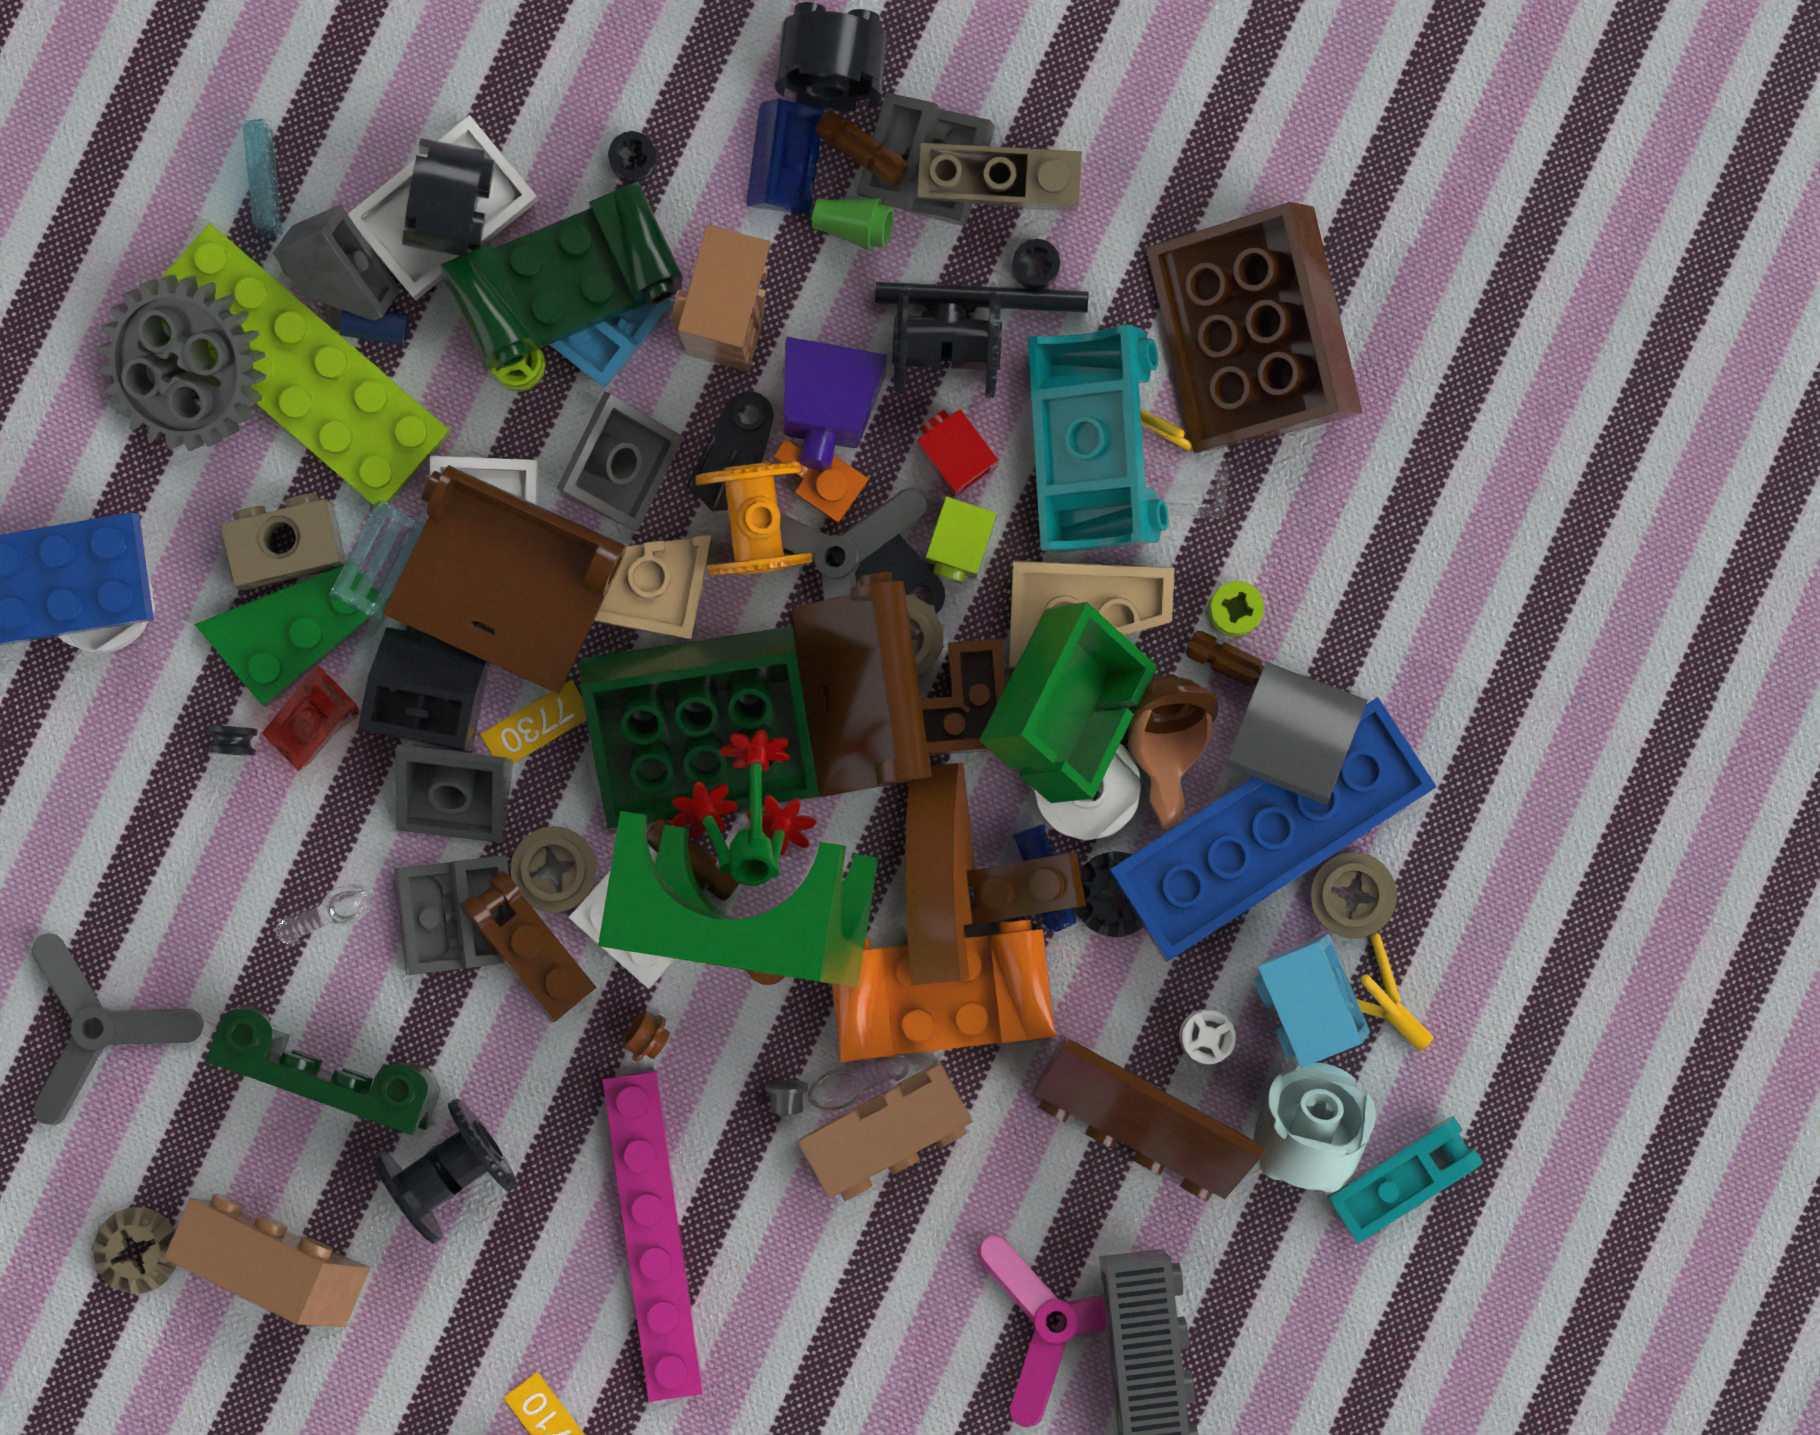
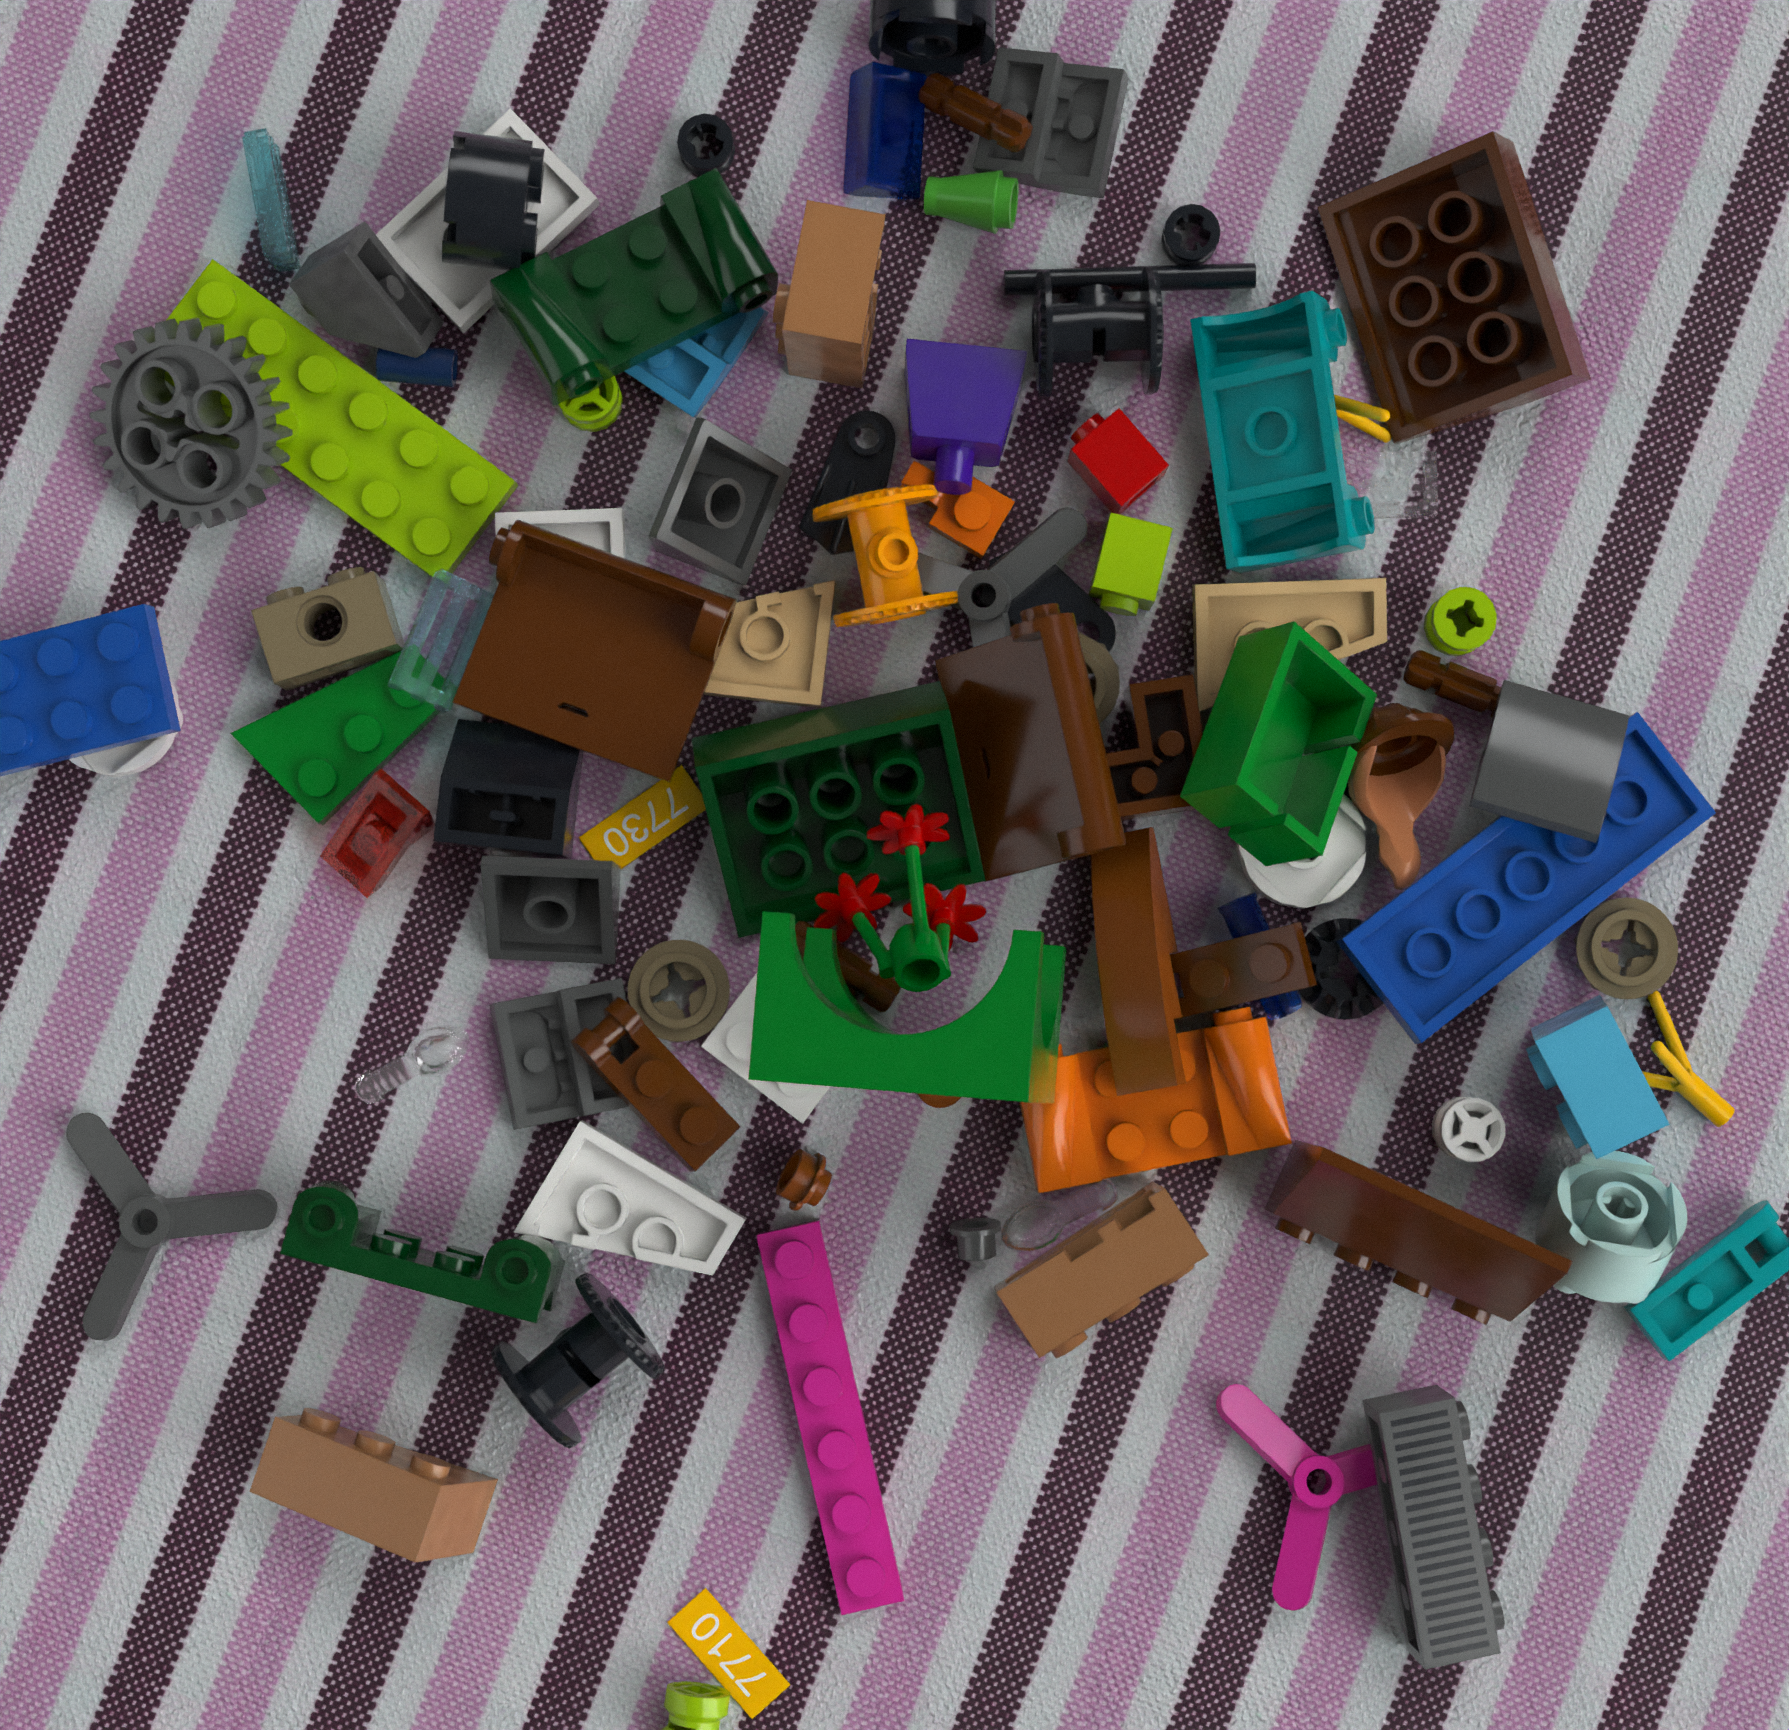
camera: 10 degrees left, 0 degrees up
(110, 1241) = (186, 1472): dark tan gear -> none
(232, 740) = (285, 867): black bush -> none
(497, 1046) = (628, 1206): none -> white wing
(1000, 176) = (1146, 132): dark tan slope -> none

